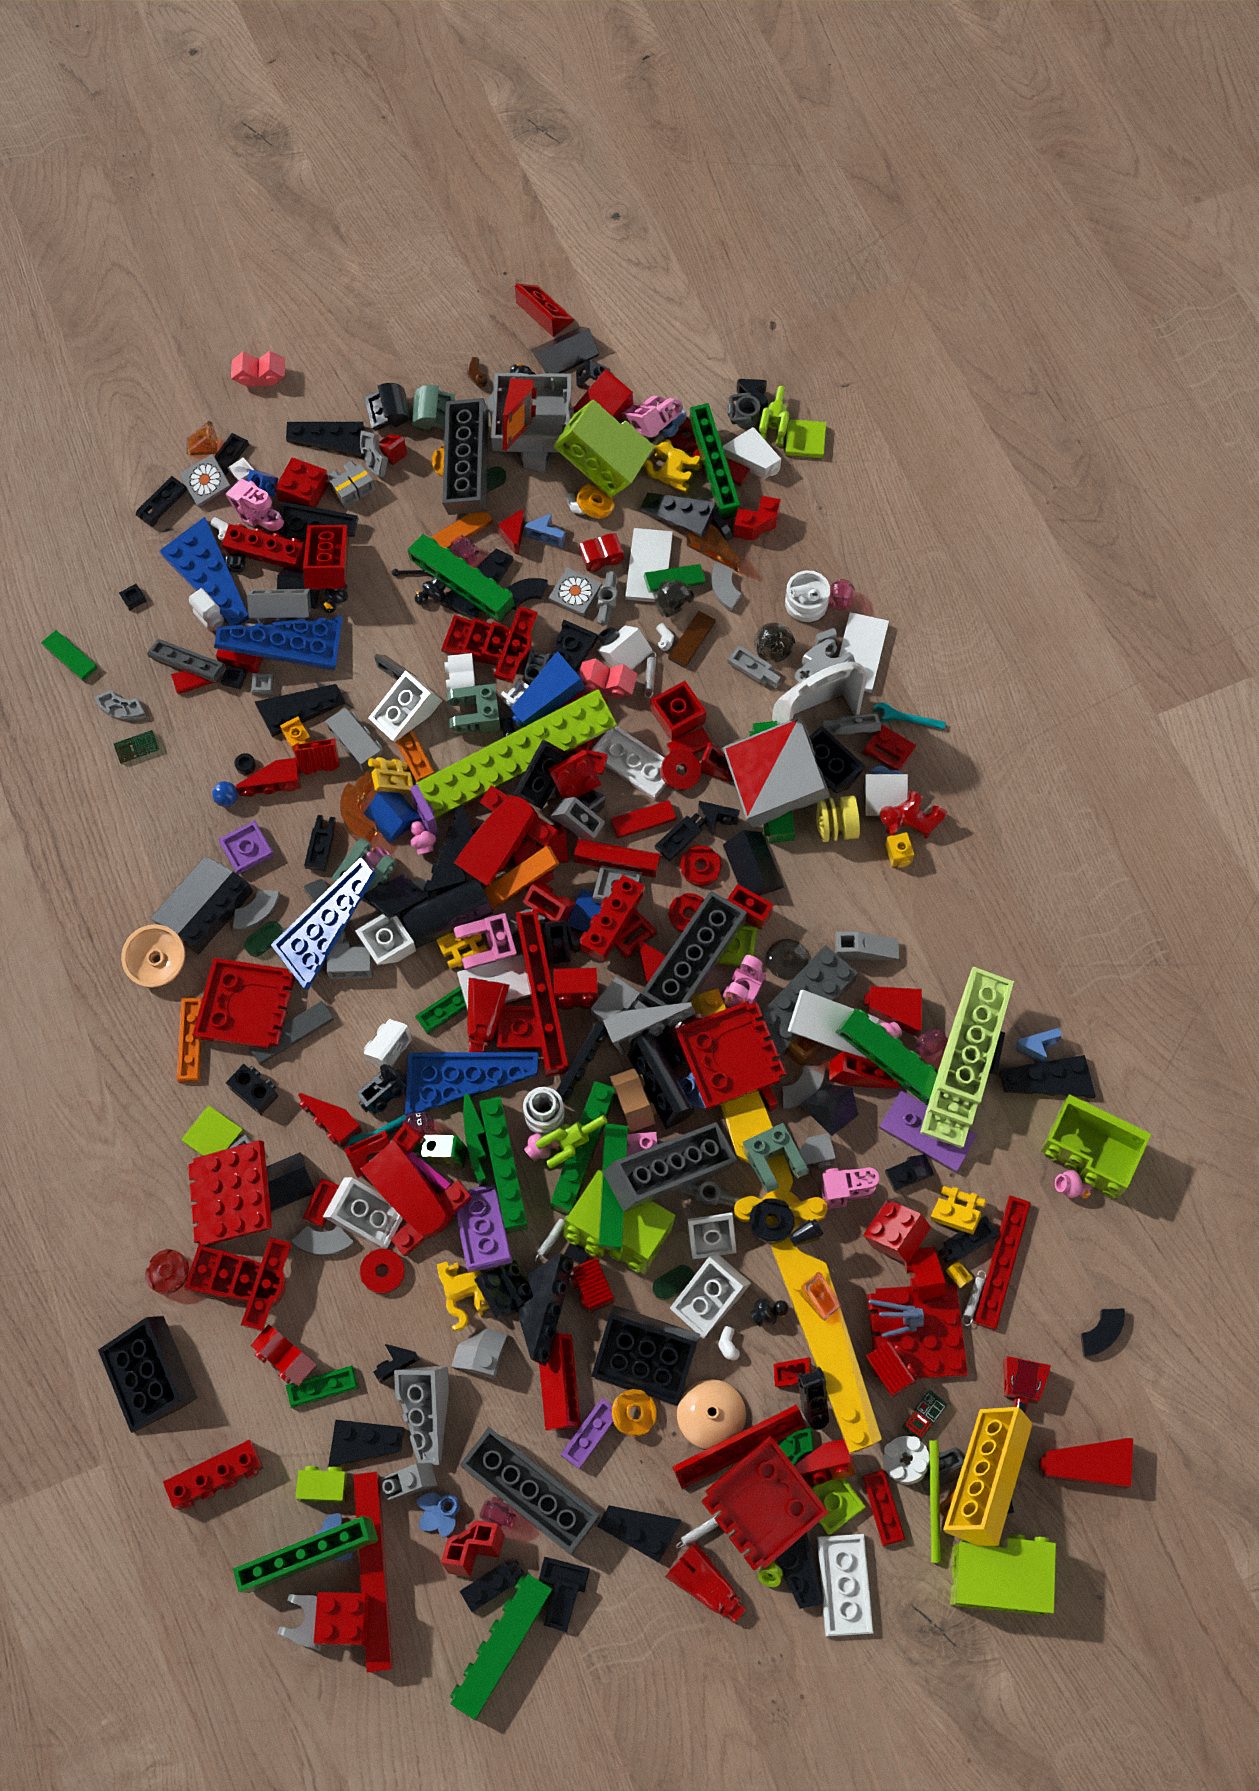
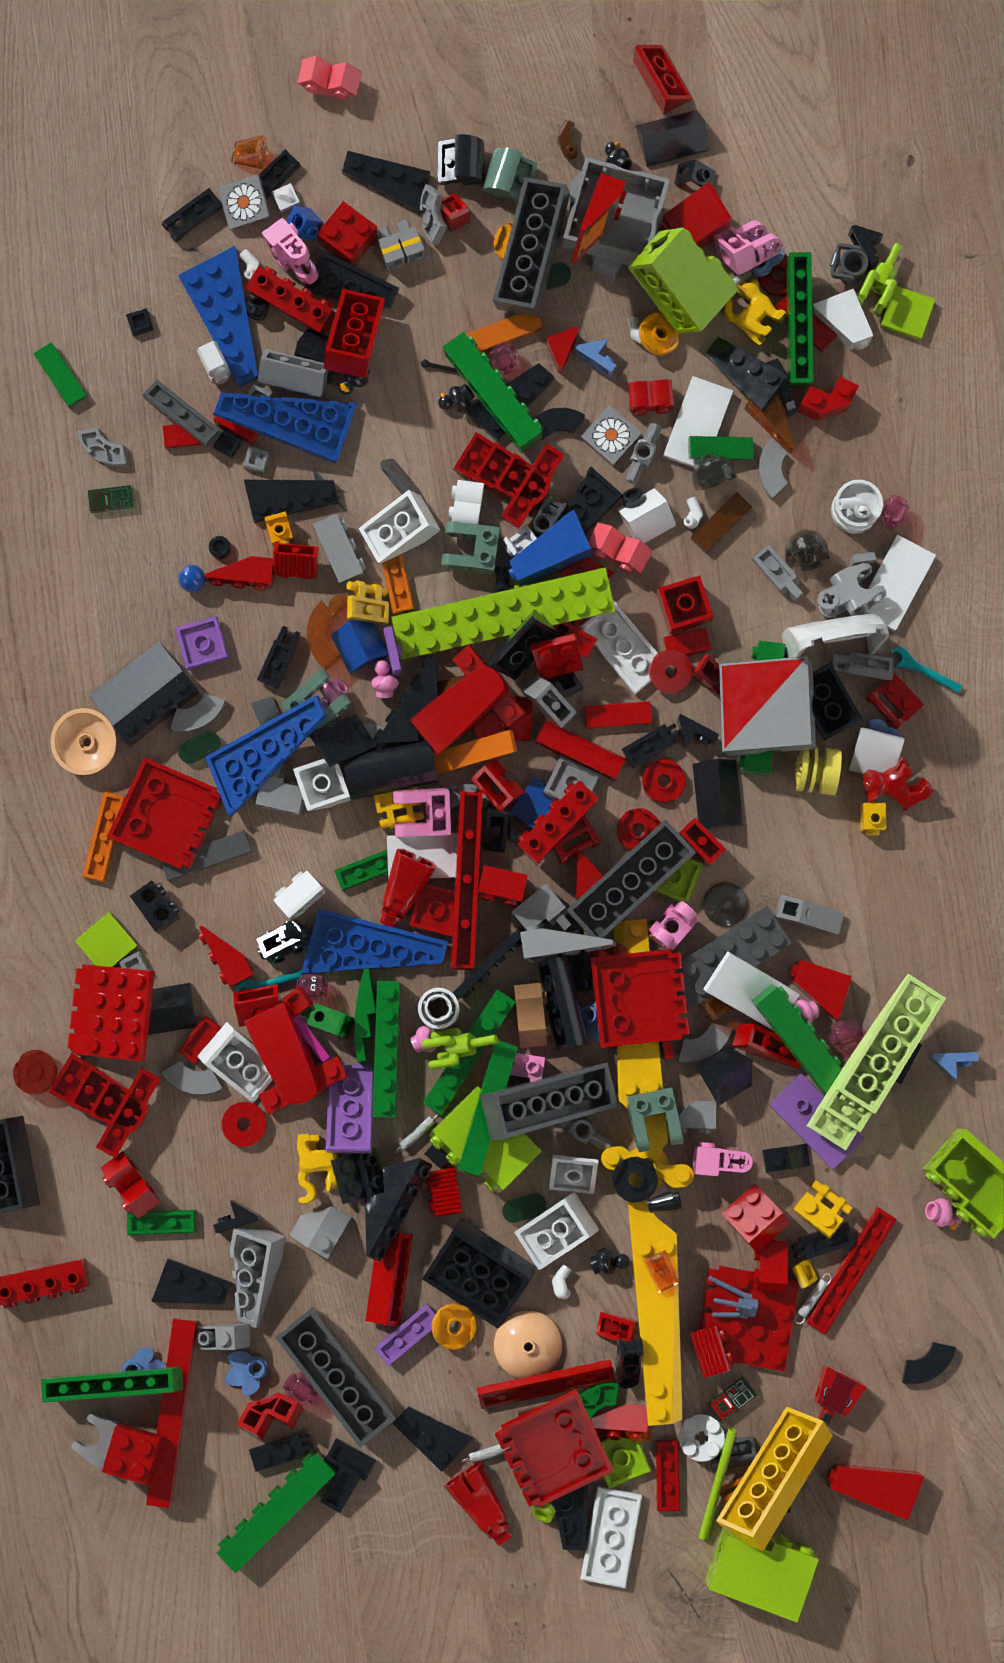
camera: 10 degrees right, 15 degrees up
(322, 1485) = (141, 1318): lime brick -> none
(650, 674) = (667, 551): white piece -> none
(1050, 1078) = (958, 1098): black wing -> none

